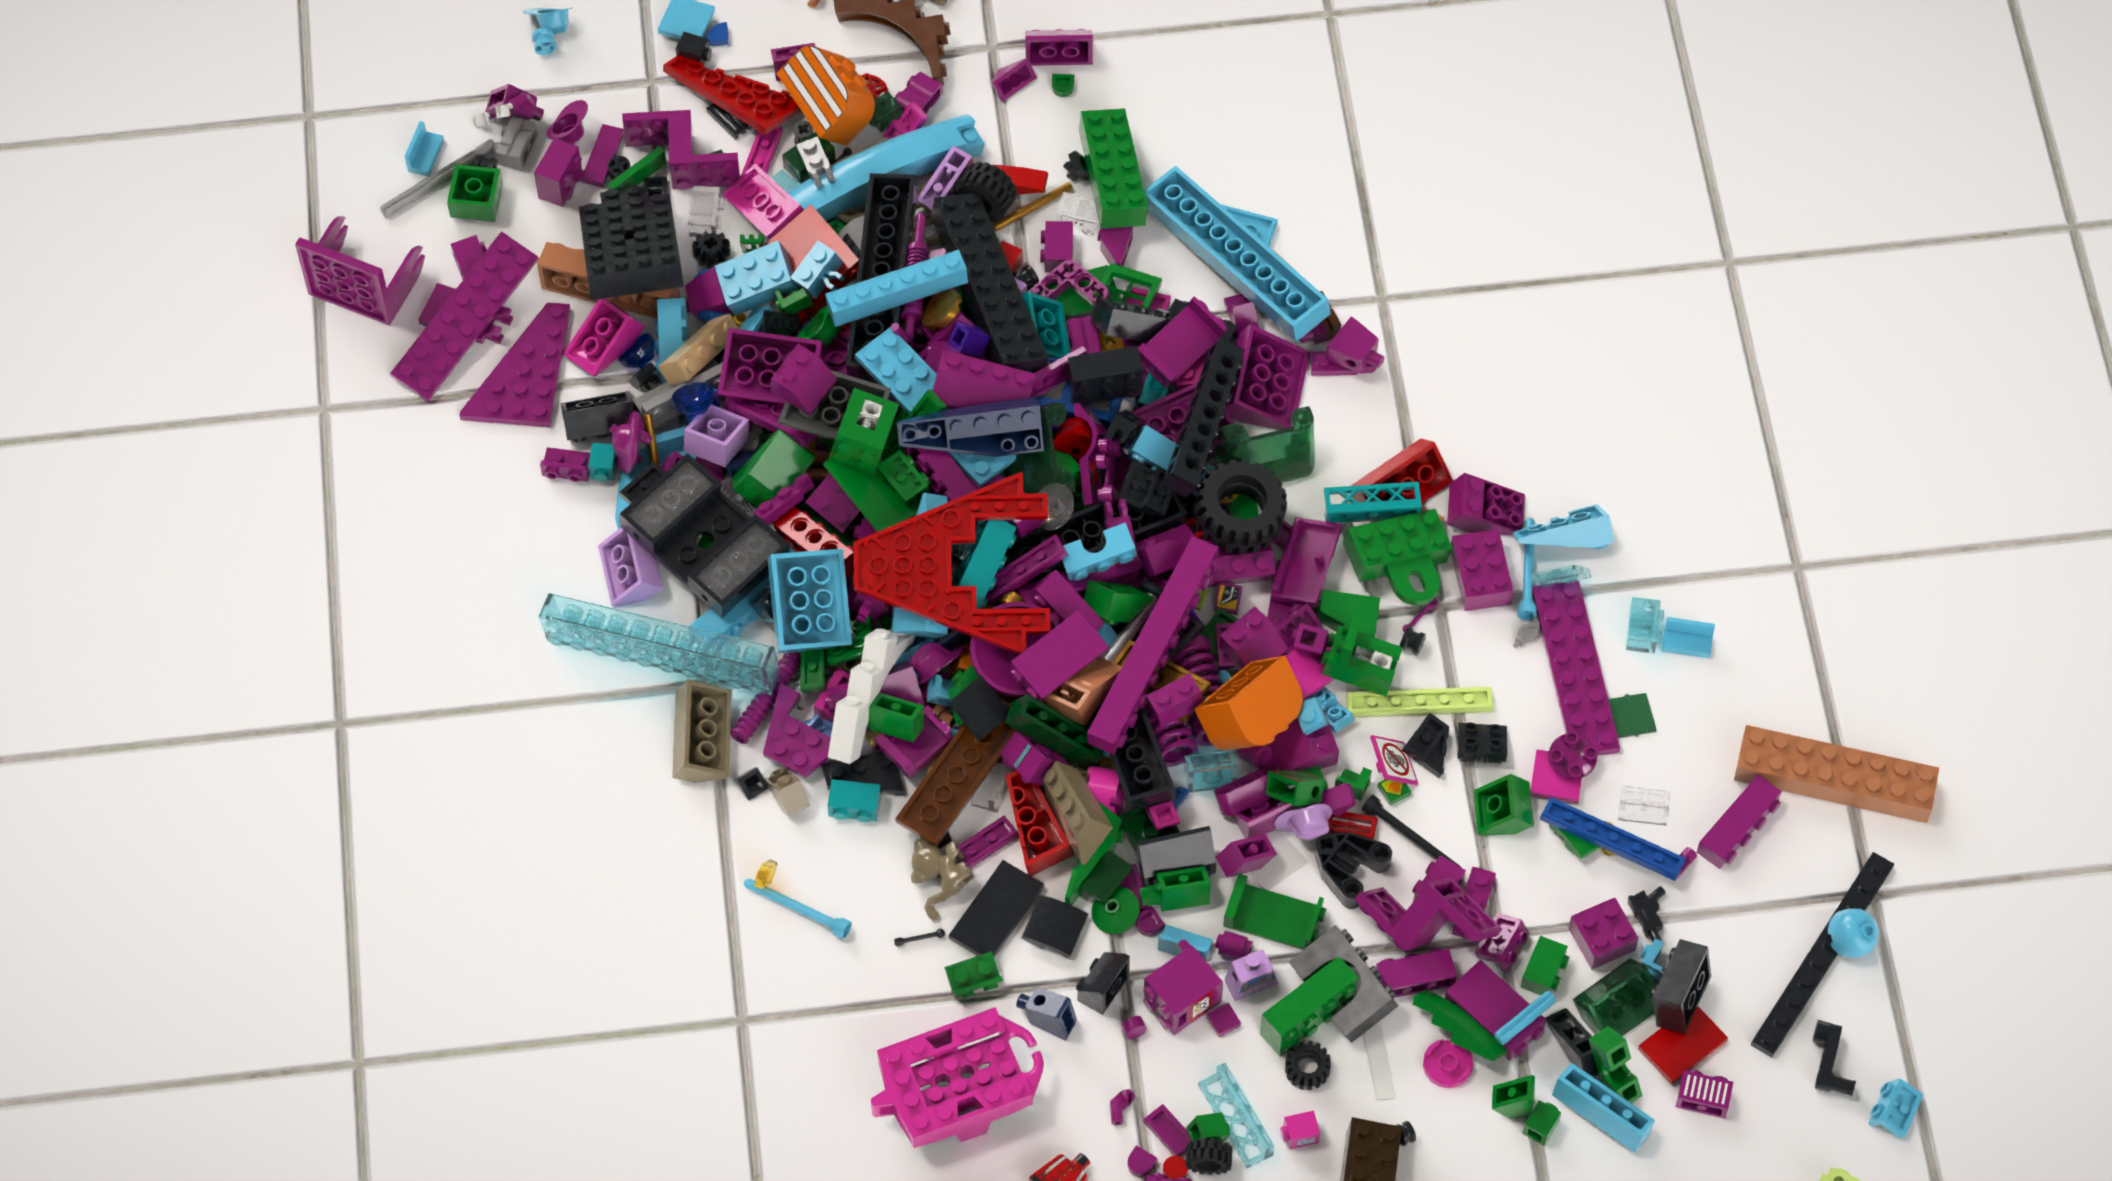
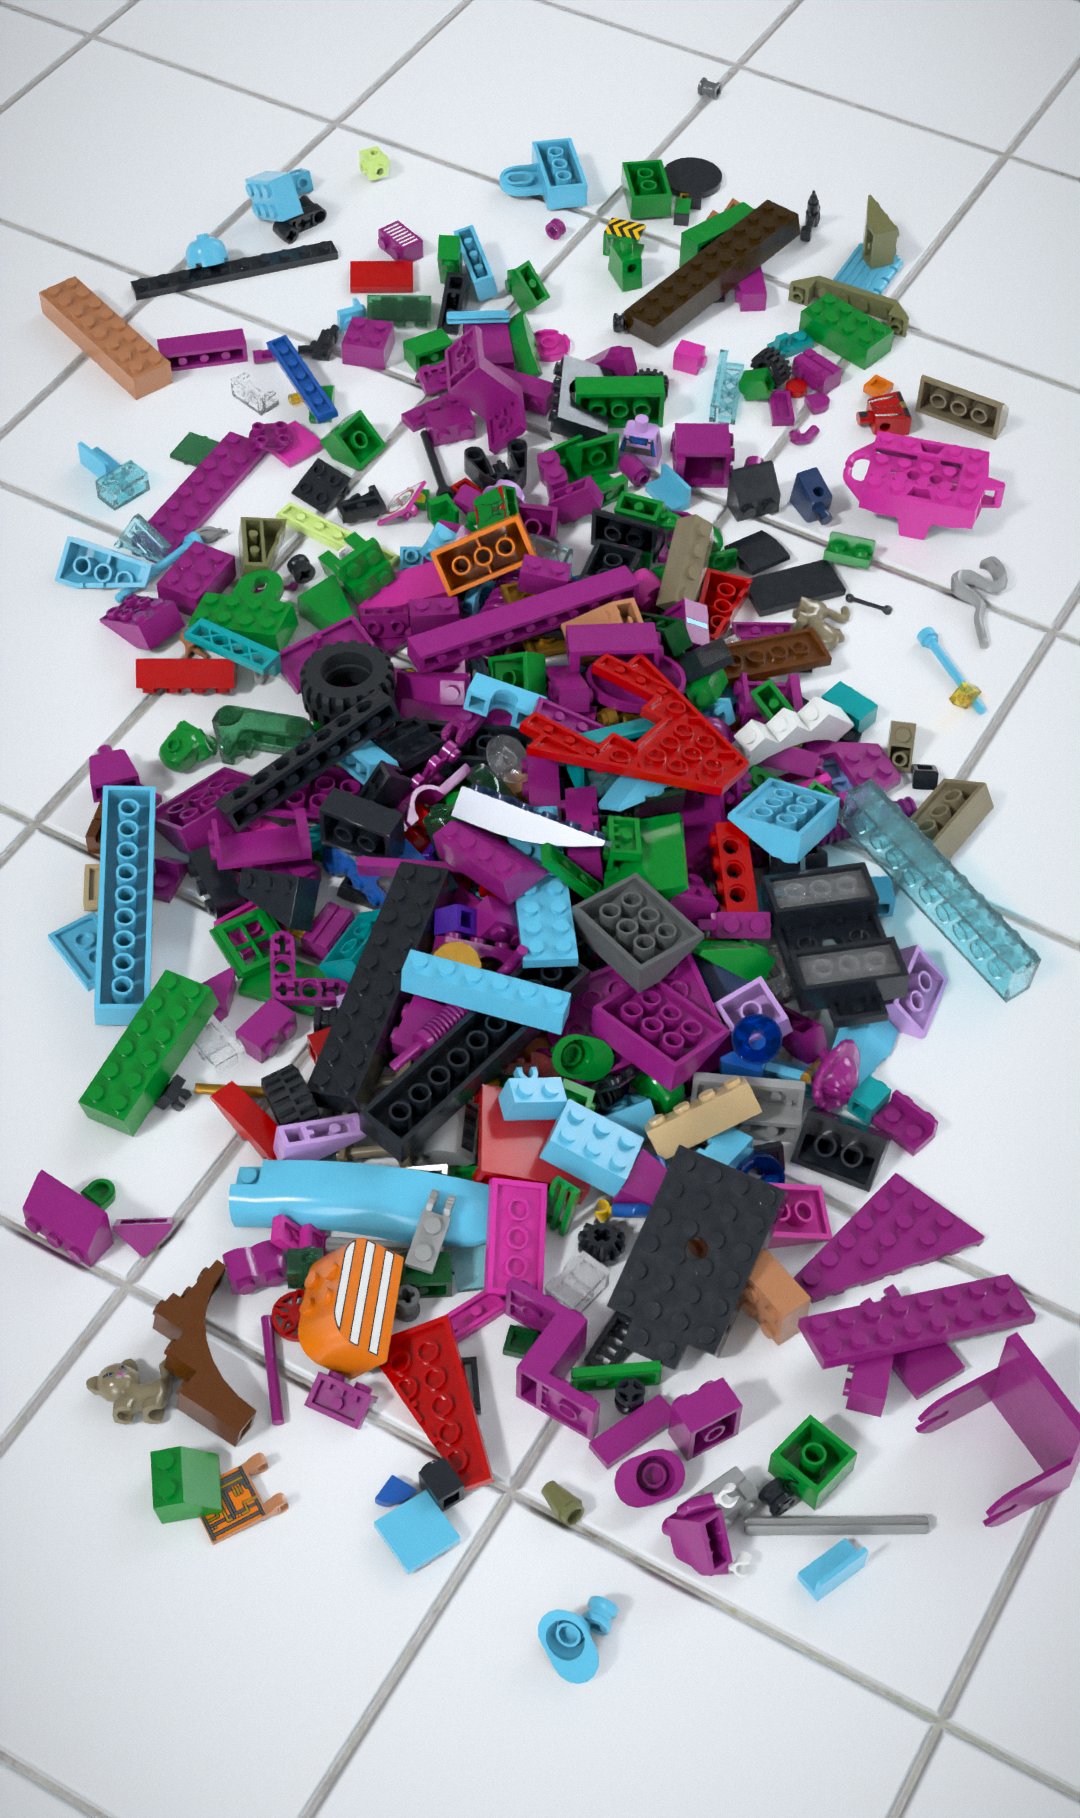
camera: 145 degrees left, 10 degrees down
(612, 86) = (563, 1503): none -> olive cone
(803, 380) = (658, 945): magenta slope -> none
(853, 53) = (272, 1370): none -> magenta bar
(854, 1015) = (960, 588): none -> light grey animal
(863, 431) = (635, 864): green brick -> none
(1279, 924) = (593, 456): none -> green slope
(1296, 882) = (550, 471): none -> magenta brick
(1305, 631) = (384, 590): magenta brick -> none
(1330, 418) = (186, 747): none -> green head
(1360, 1047) = (616, 358): none -> magenta slope
(1461, 628) = (259, 543): none -> olive wedge
(1681, 986) = (354, 278): black brick -> none
(1861, 1035) = (273, 196): none -> medium azure brick

